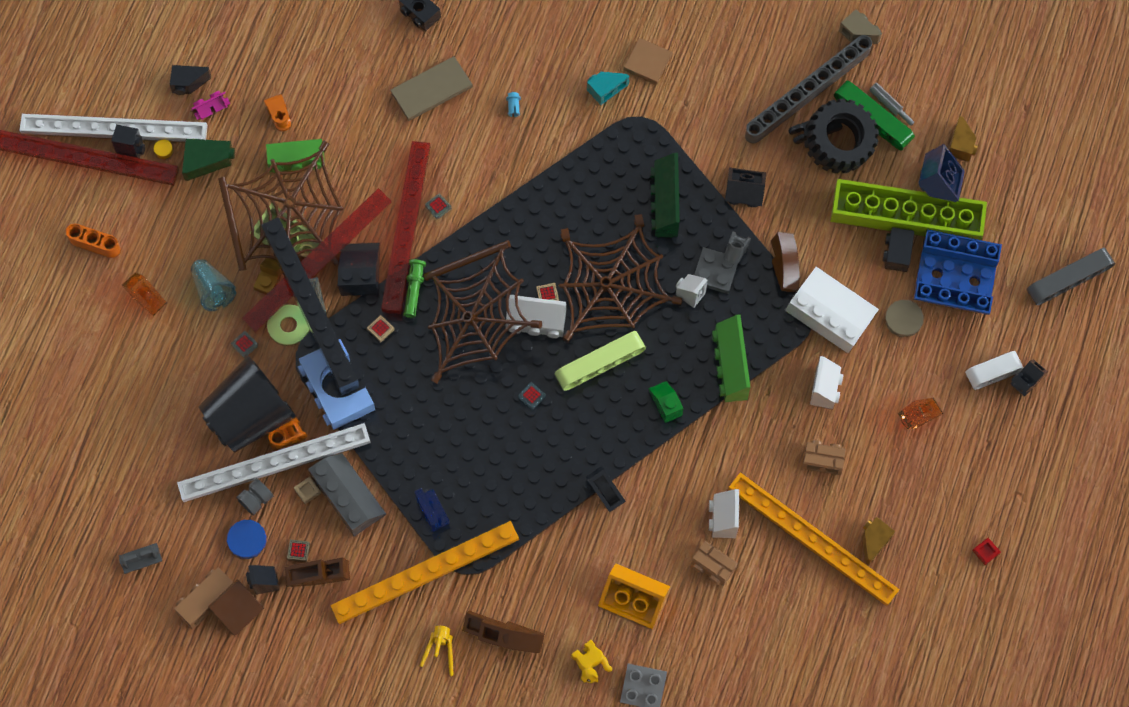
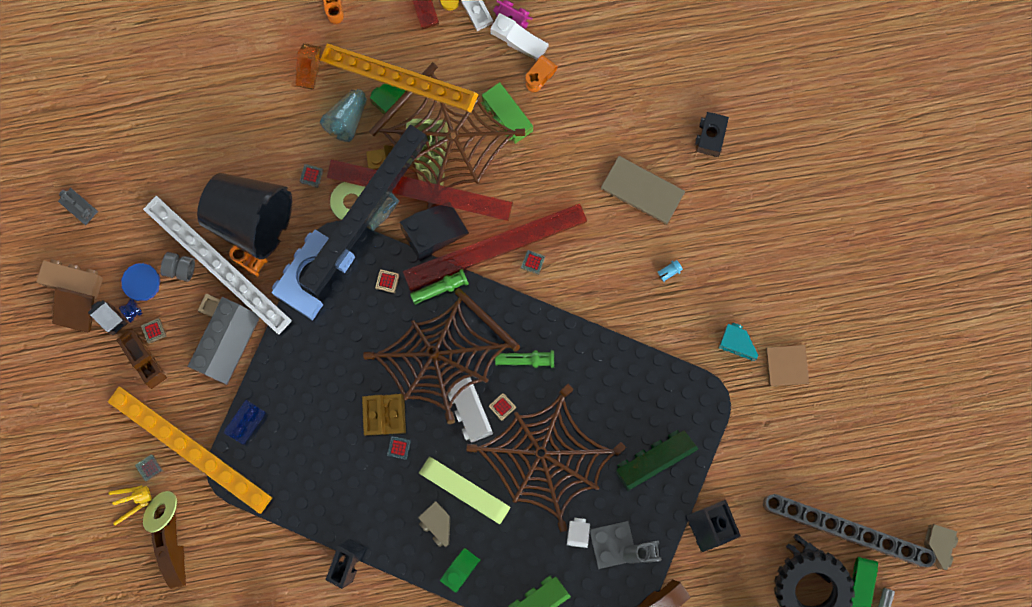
camera: 65 degrees right, 10 degrees up
(206, 157) = (460, 39): dark green slope -> none
(211, 214) = (399, 77): none -> light orange plate
(217, 241) = (385, 96): none -> green slope
(235, 111) = (517, 37): none -> white slope
(268, 557) = (131, 310): none -> clear blue wheel
(419, 618) = (149, 468): none -> clear light blue tile
(472, 611) = (170, 501): none -> yellowish green gear
(495, 392) = (383, 414): none -> pearl gold slope
(522, 246) = (535, 359): none -> bright green pin
(616, 396) = (438, 522): none -> dark tan slope

